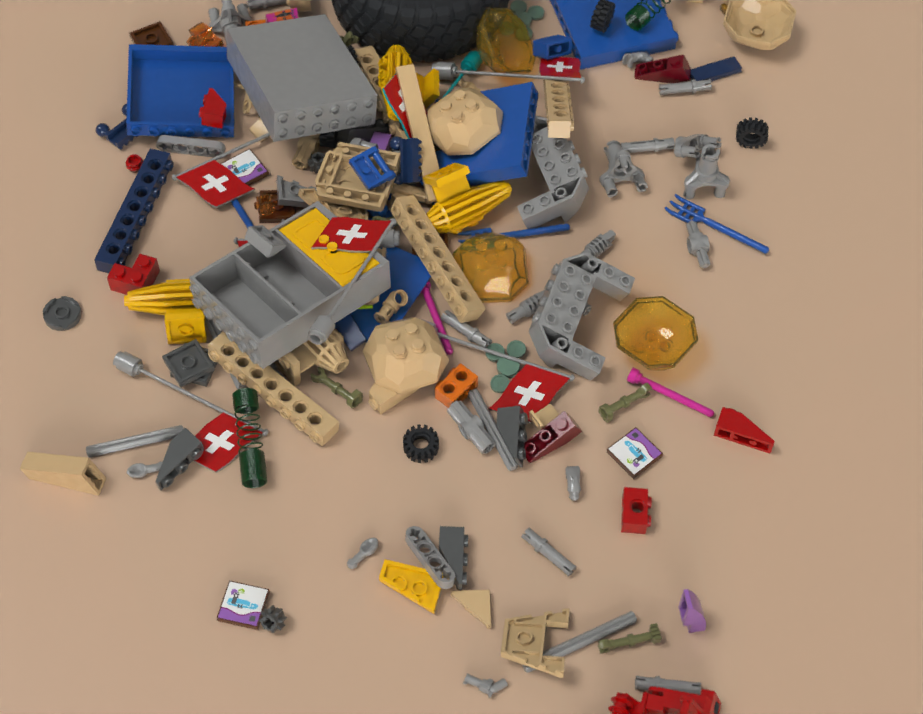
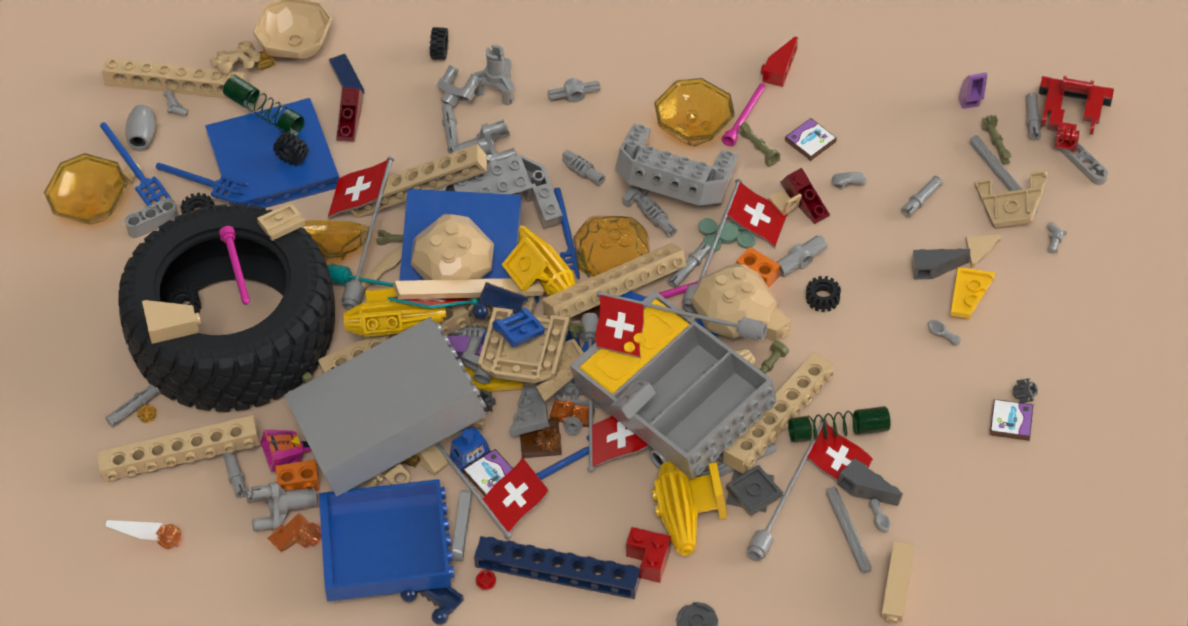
camera: 90 degrees left, 5 degrees down
(151, 35) = (292, 590): reddish brown tile -> none
(213, 111) = (424, 492): red slope -> none
(262, 145) = (468, 448): none -> blue torso
(432, 556) = (947, 279): light grey beam -> none
(492, 429) = (785, 247): light grey axle -> none
(511, 424) = (802, 222): dark grey slope -> none
(552, 47) = (321, 201): blue brick -> none
(631, 58) = (331, 140): light grey piece -> none
(632, 521) = (873, 136): red brick -> none
(683, 87) = (371, 101): light grey pin -> none
(699, 217) = (538, 90): blue piece -> none

